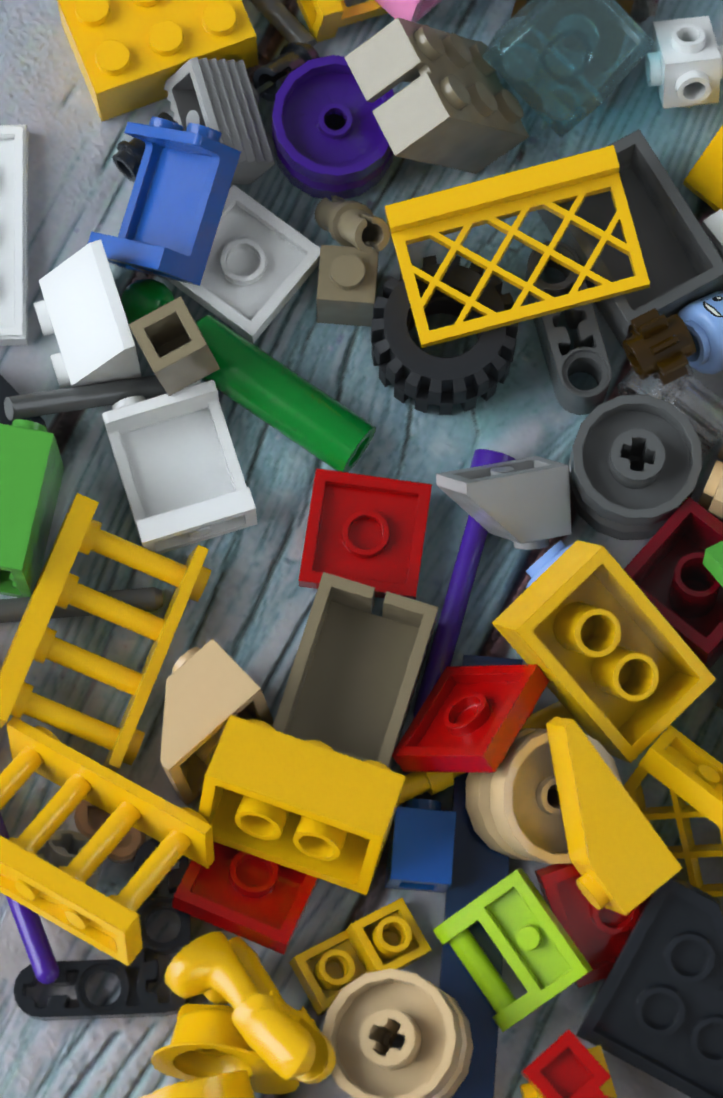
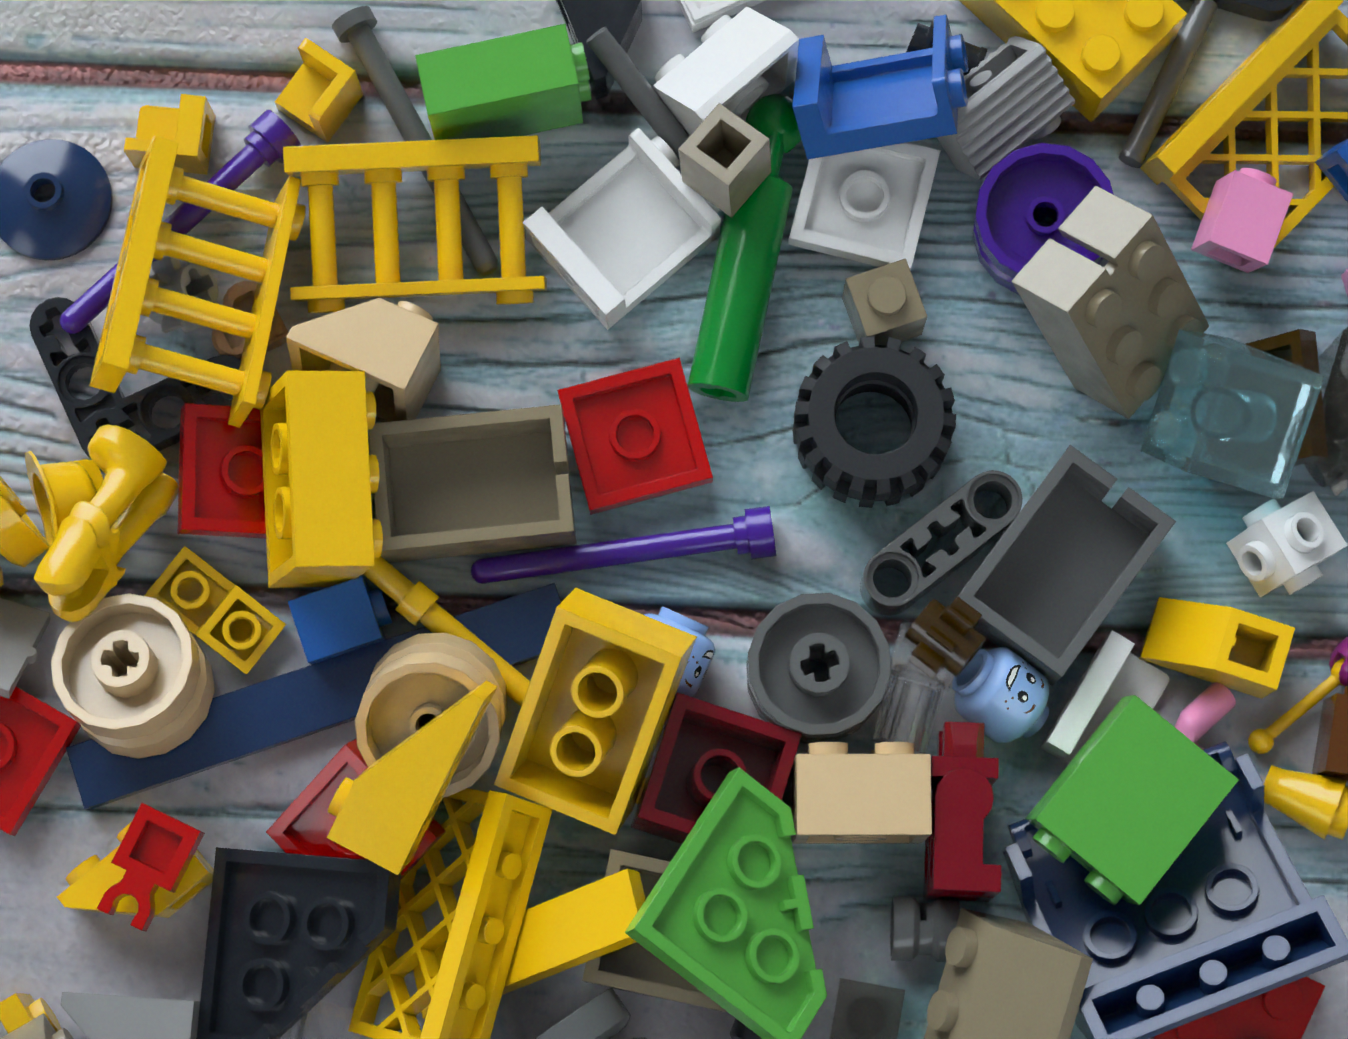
camera: 70 degrees right, 5 degrees up
(276, 71) = (1105, 151): black pin -> none
(352, 224) = (944, 281): dark tan pin -> none
(470, 718) = (471, 609): red plate -> none
(505, 197) = (1026, 413): yellow fence -> none
(515, 499) = (727, 560): light grey slope -> none
(528, 940) = (283, 757): lime plate -> none

